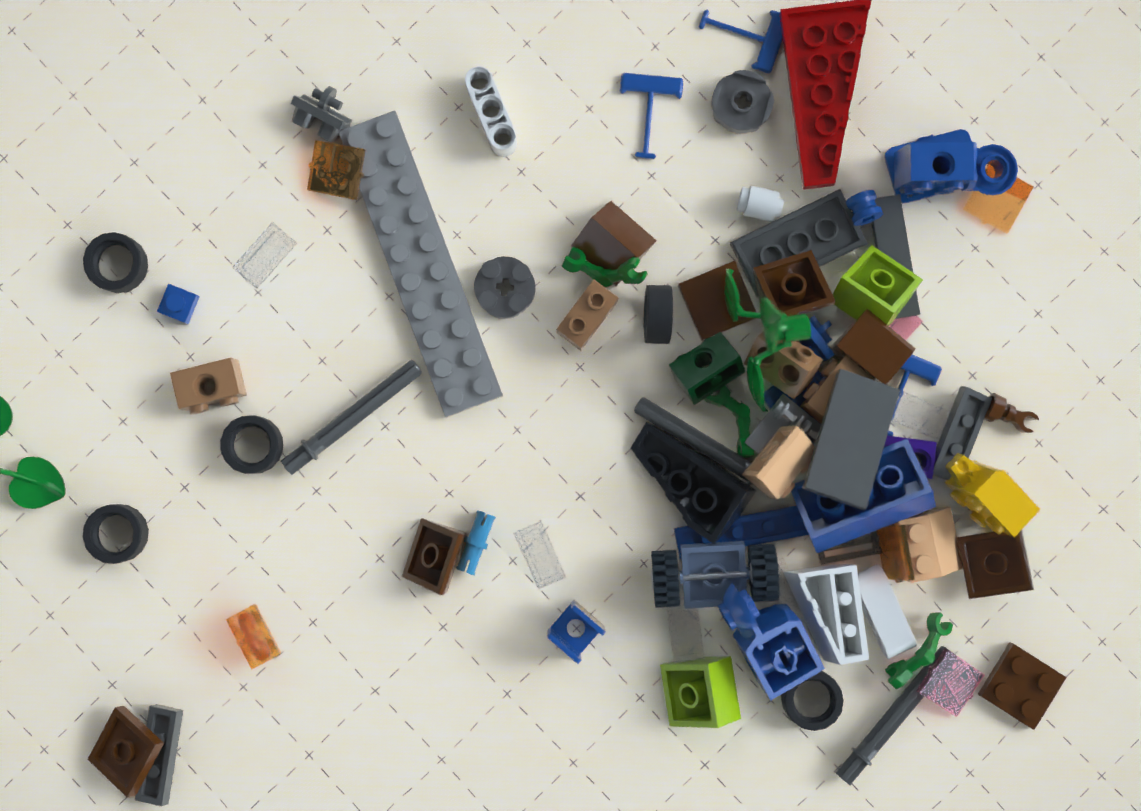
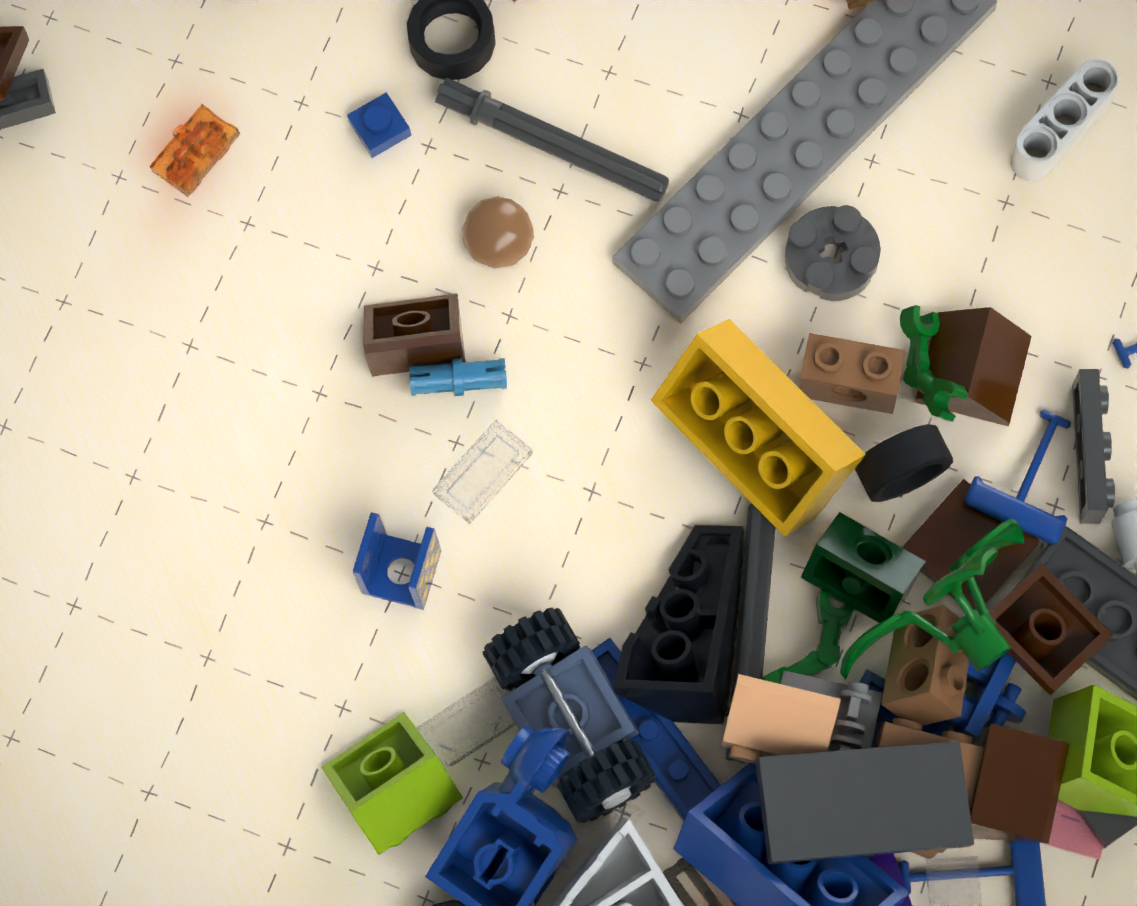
camera: 75 degrees right, 15 degrees down
(289, 515) = (379, 125): none -> blue plate
(395, 476) = (497, 232): none -> medium nougat hair
(598, 386) = (757, 427): none -> yellow brick
(695, 202) = (1092, 446): none -> dark grey plate
(712, 265) = (1006, 507): none -> blue piece

